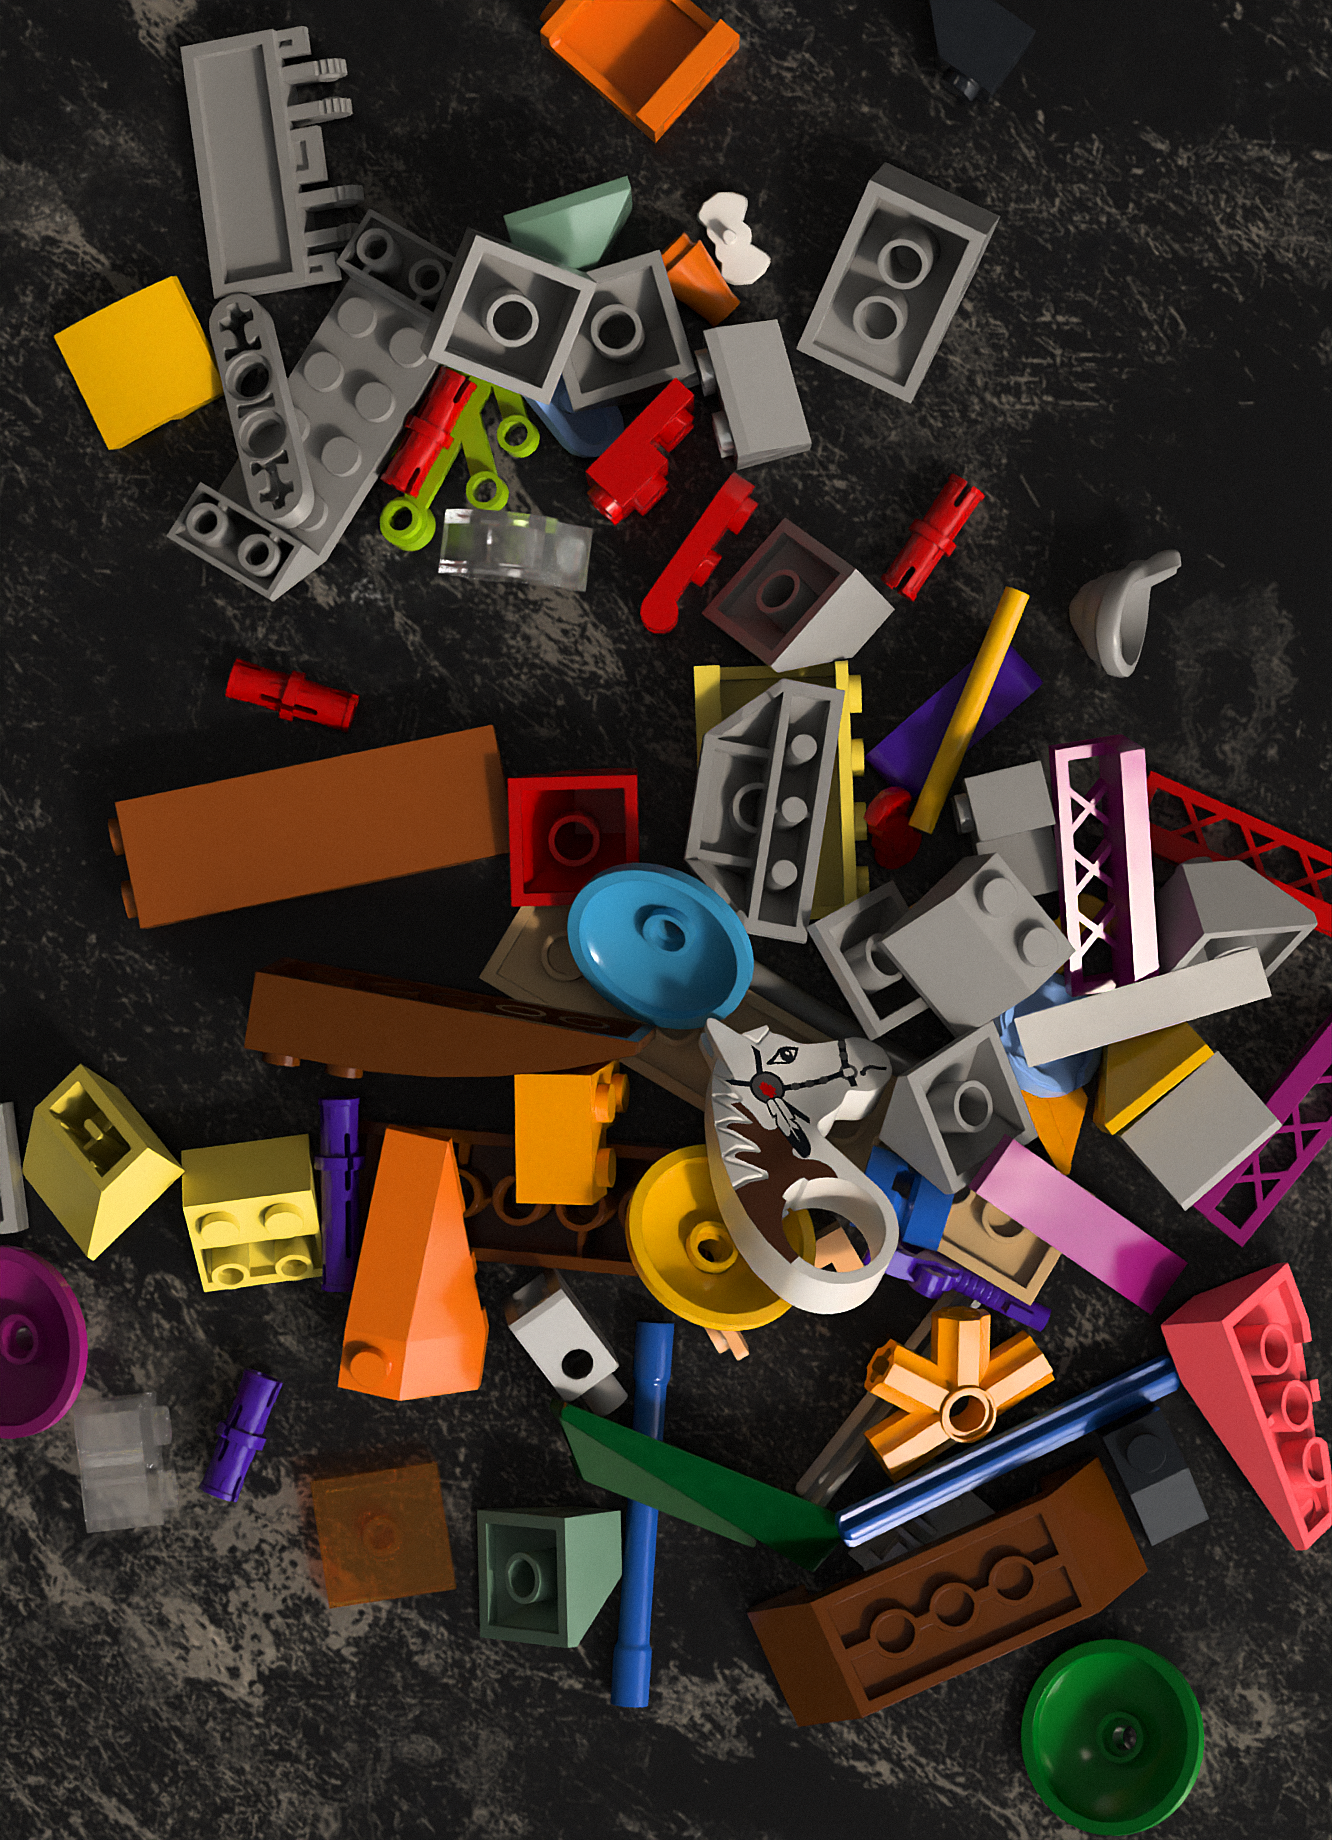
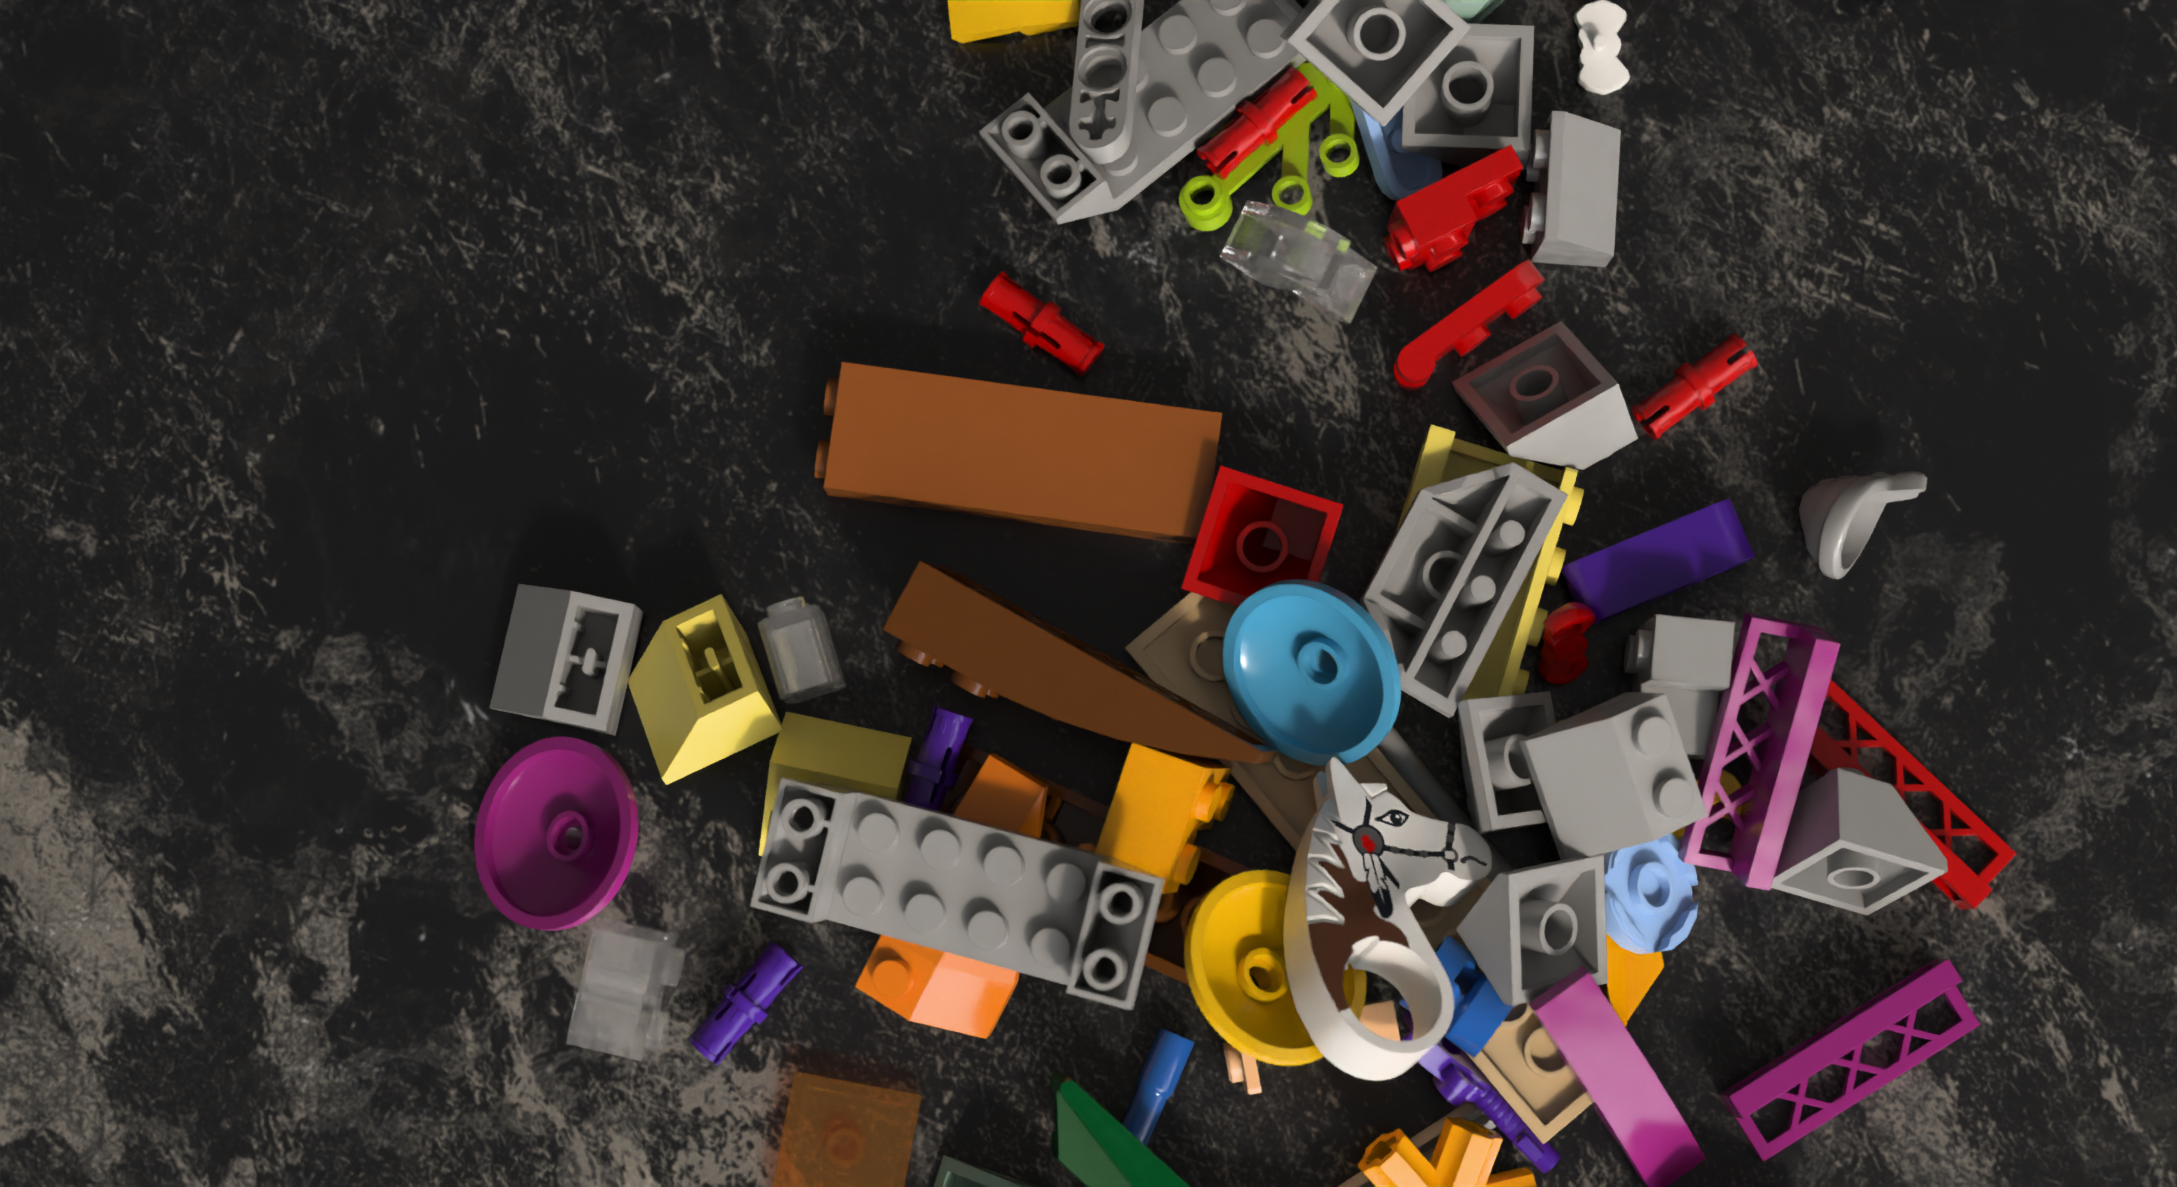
camera: 20 degrees right, 5 degrees down
(174, 1090) = (800, 651): none -> clear brick
(399, 1265) = (959, 888): none -> light grey slope
(551, 1324) = (1093, 1061): light grey torso -> none
(698, 280) = (1557, 71): orange cone -> none
(897, 281) = (1742, 138): light grey slope -> none
(968, 710) = (1677, 555): yellow bar -> none
(1142, 1007) = (1751, 893): white sticker -> none
(1142, 1070) = (1732, 944): yellow slope -> none
(1199, 1130) = (1762, 1028): light grey slope -> none

